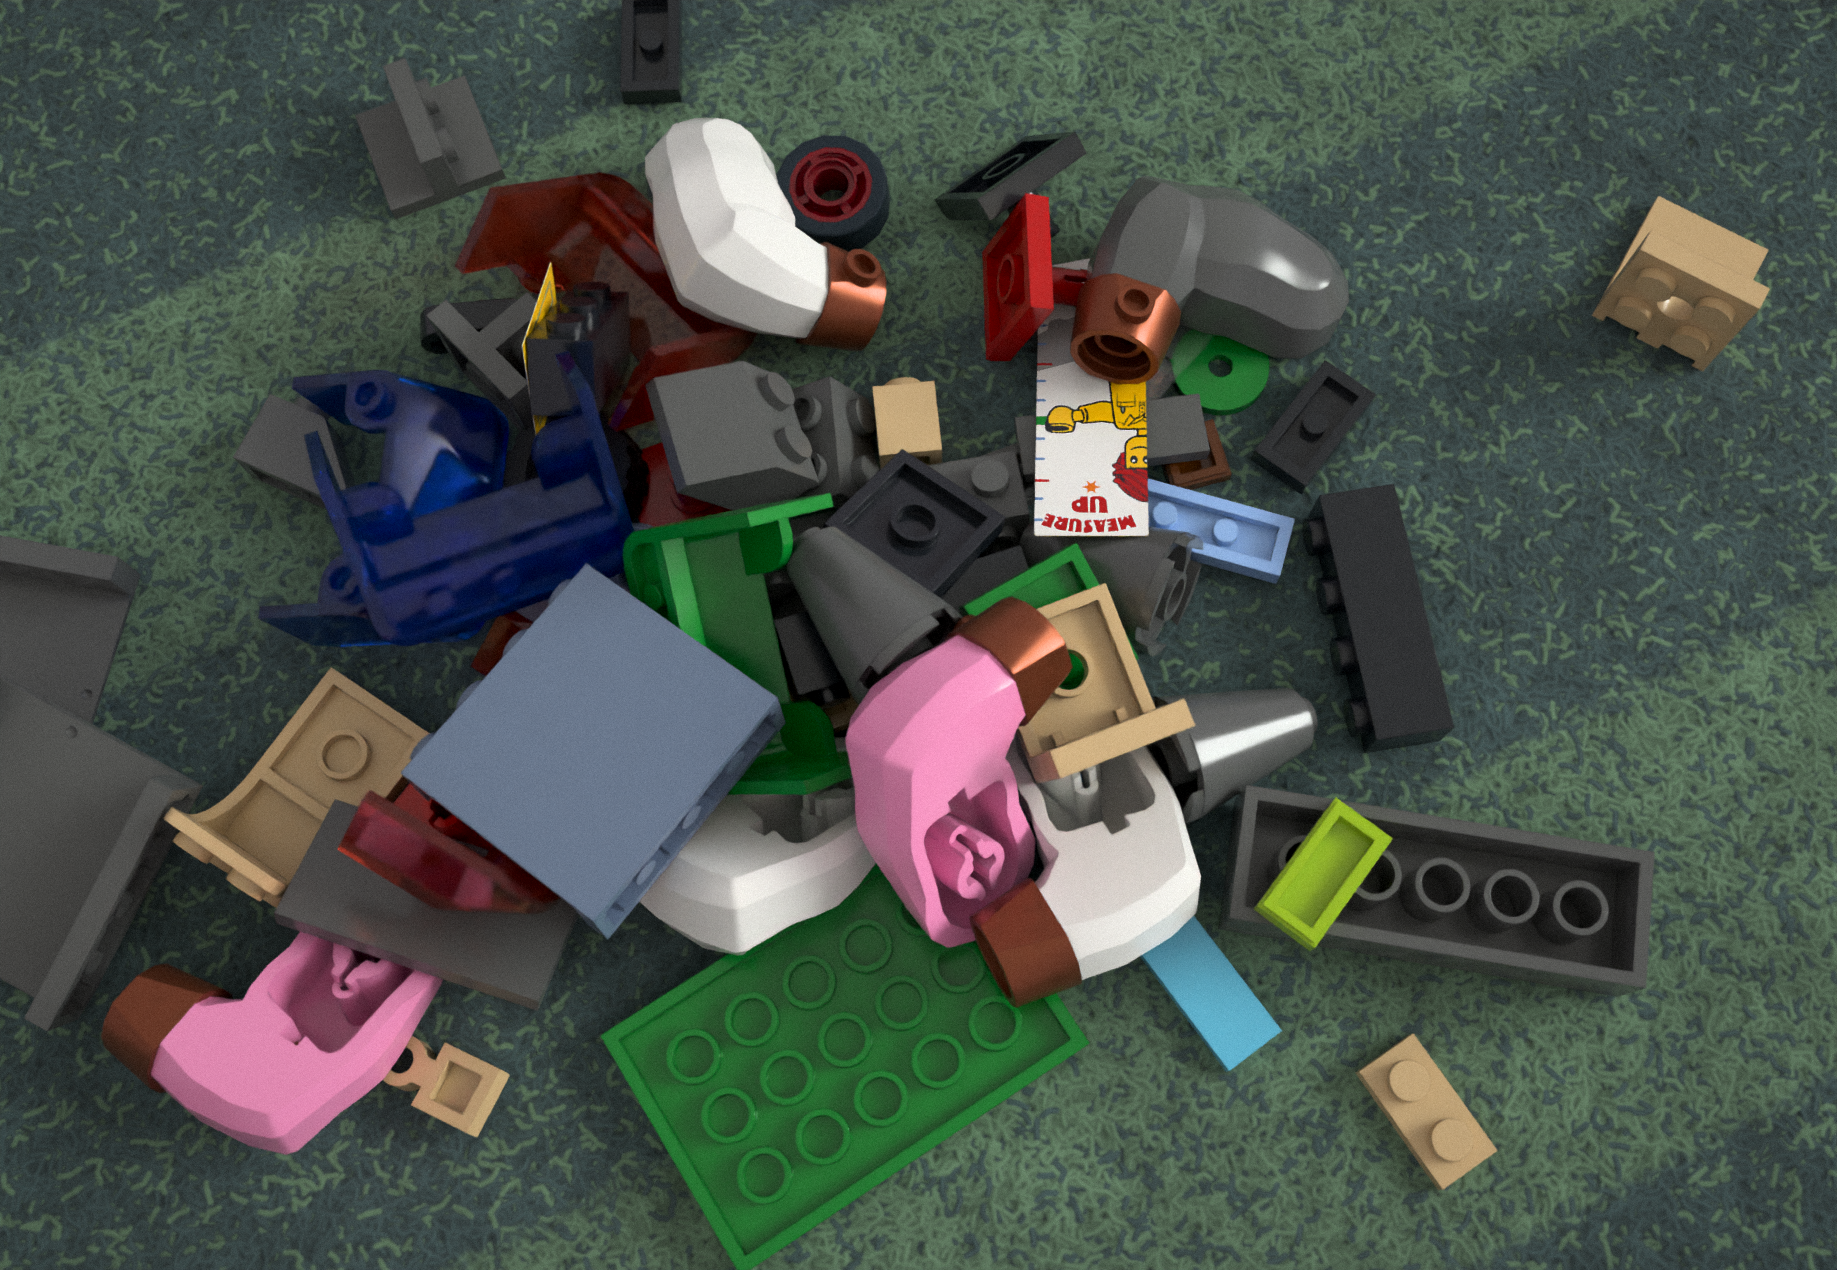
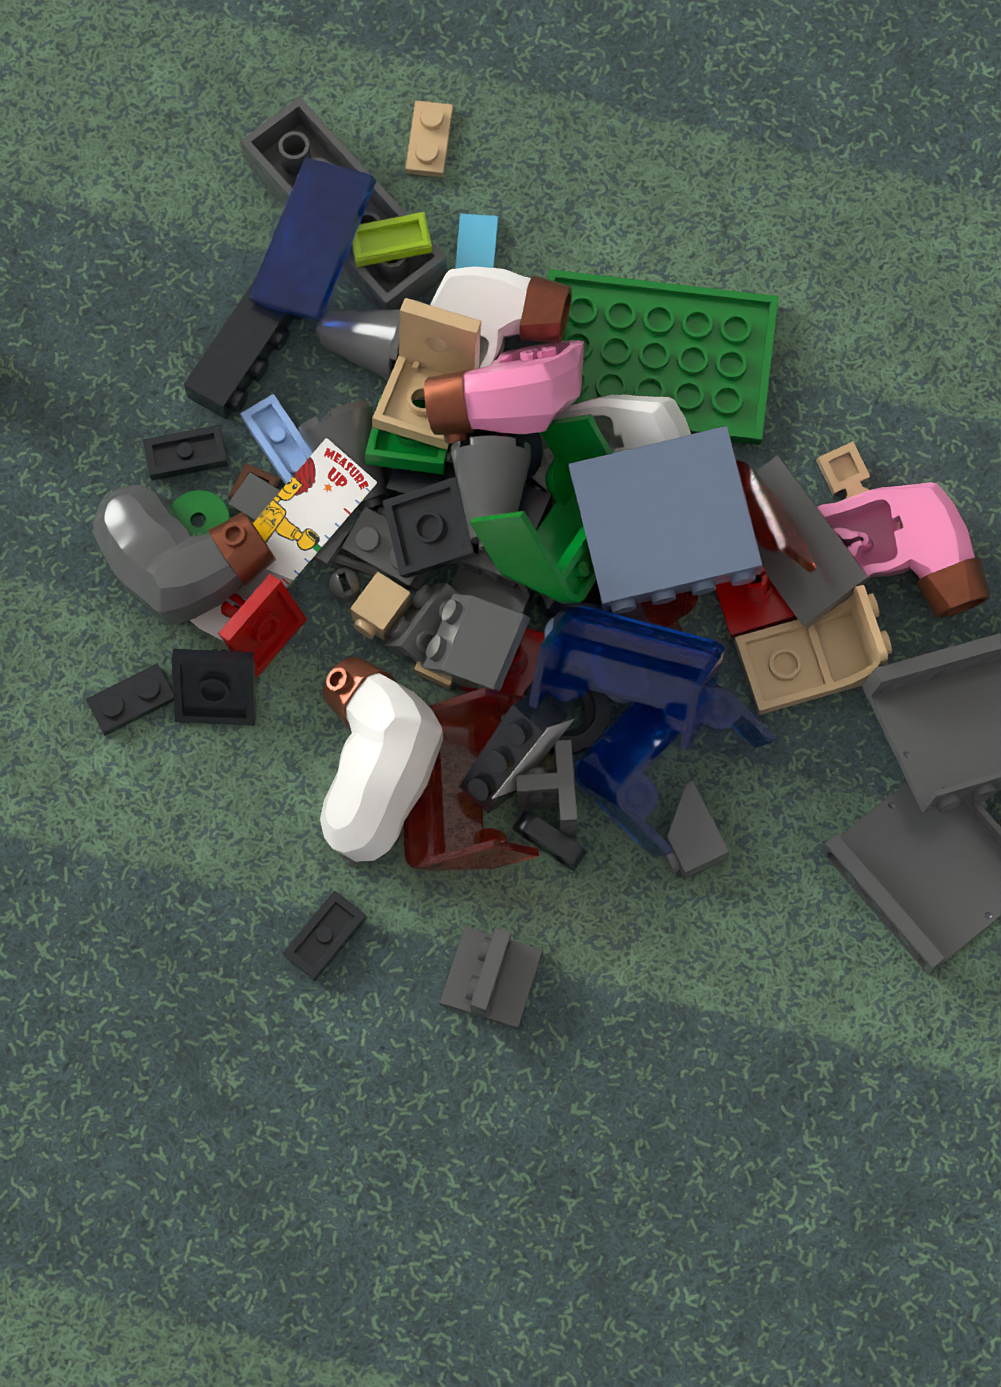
camera: 140 degrees left, 0 degrees up
(836, 165) = (295, 744): wheel -> none
(972, 435) = (336, 588): none -> dark grey hinge
(1102, 115) = (131, 699): none -> black plate
(1422, 785) = (312, 239): none -> clear blue tile

